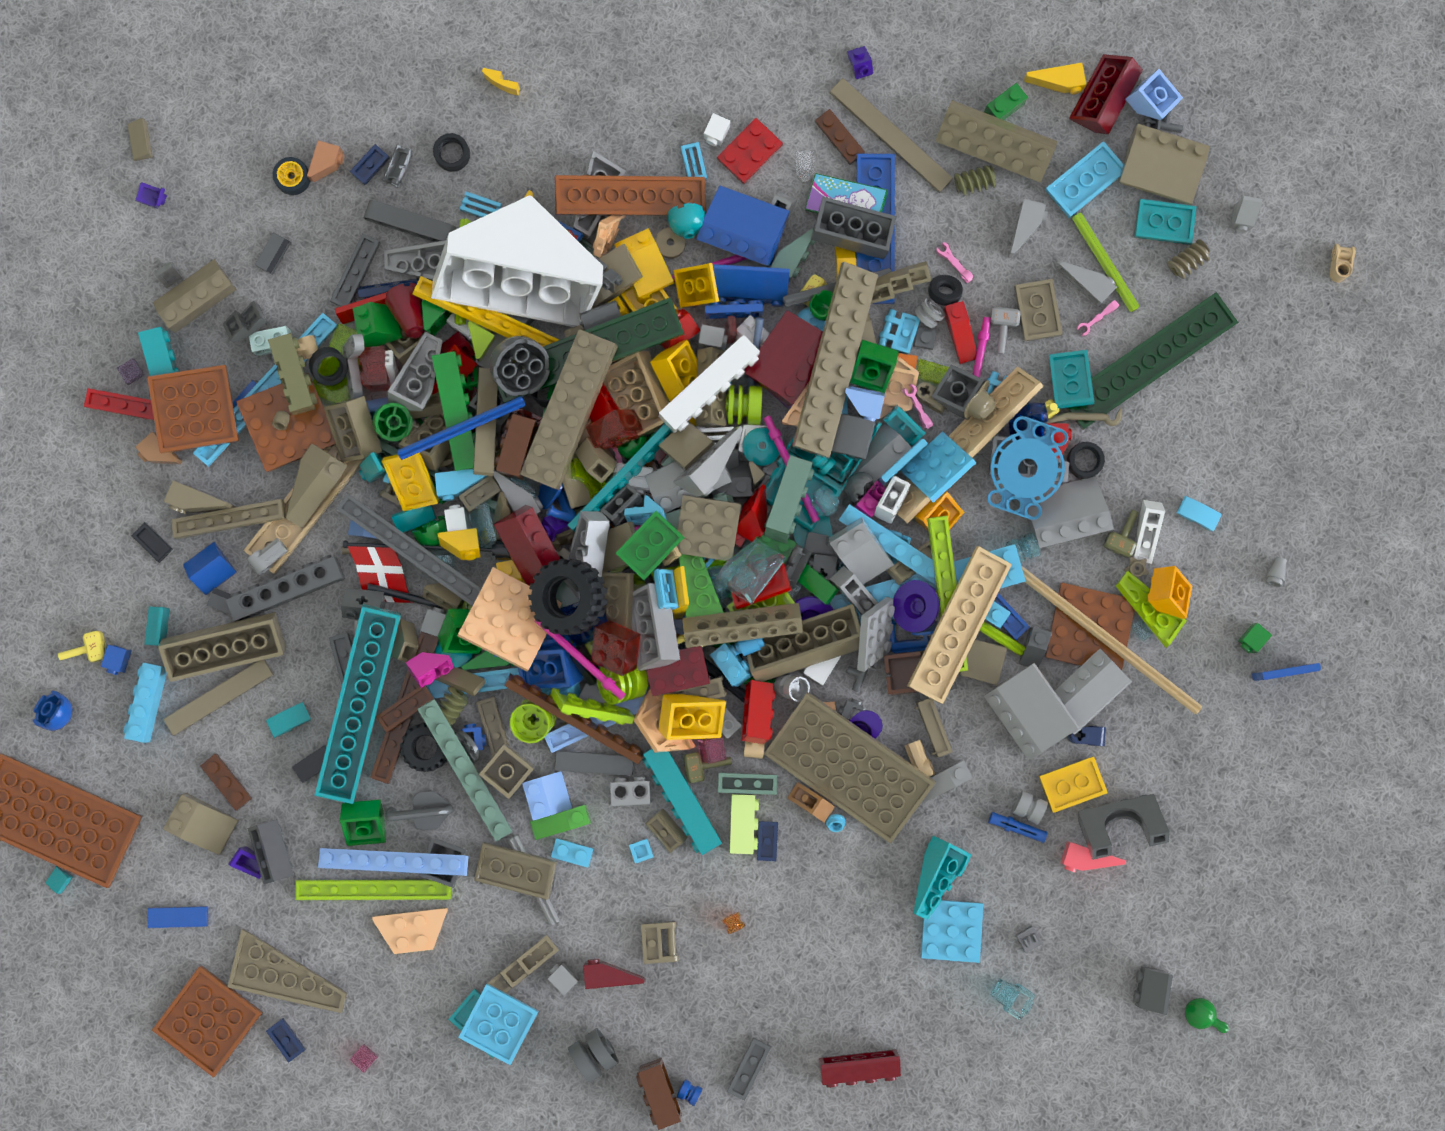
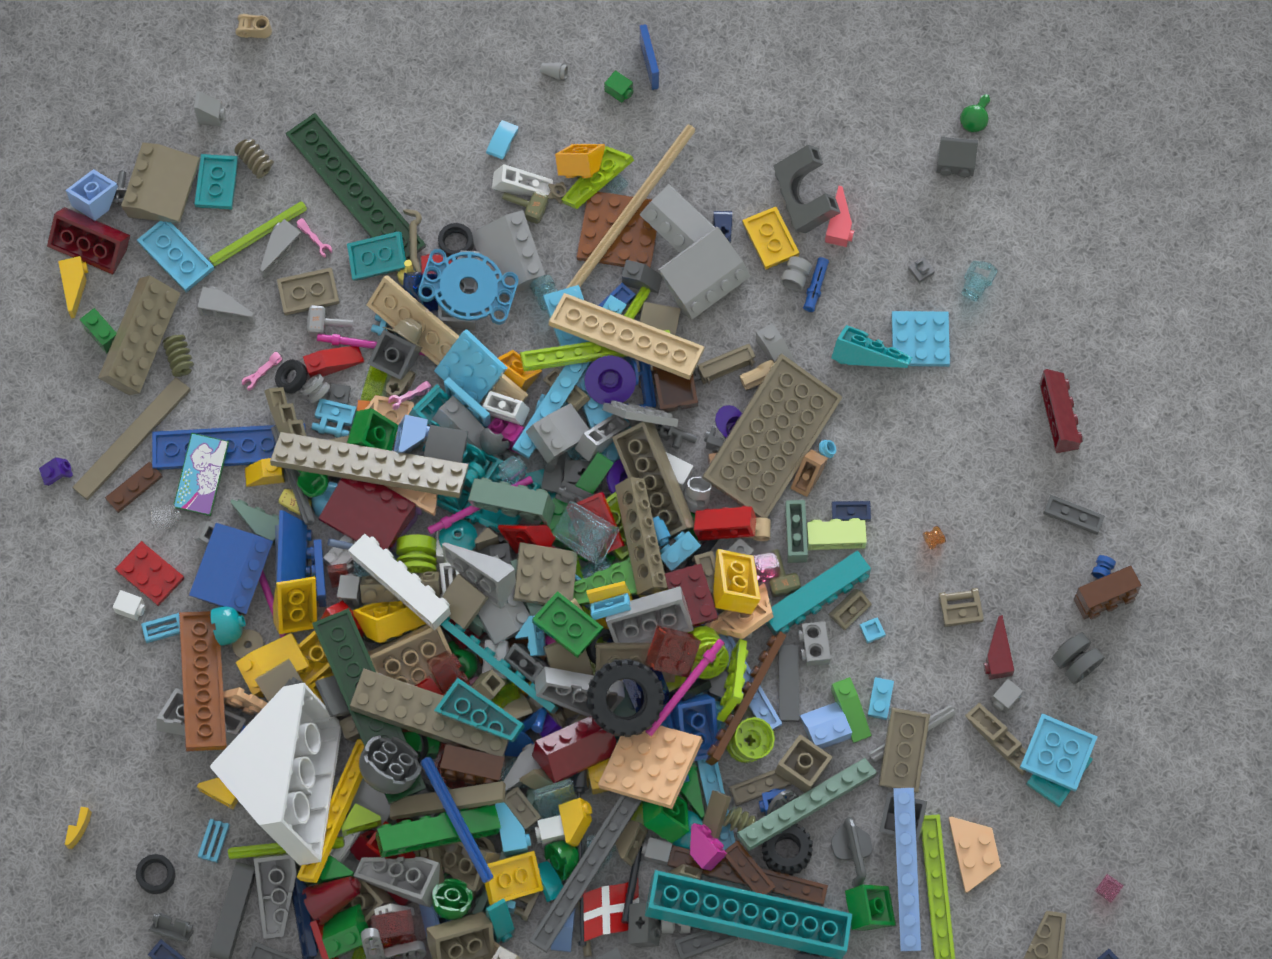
camera: 95 degrees left, 15 degrees down
(558, 452) = (475, 710): none -> teal wedge
(853, 228) = (232, 460): dark grey slope -> none

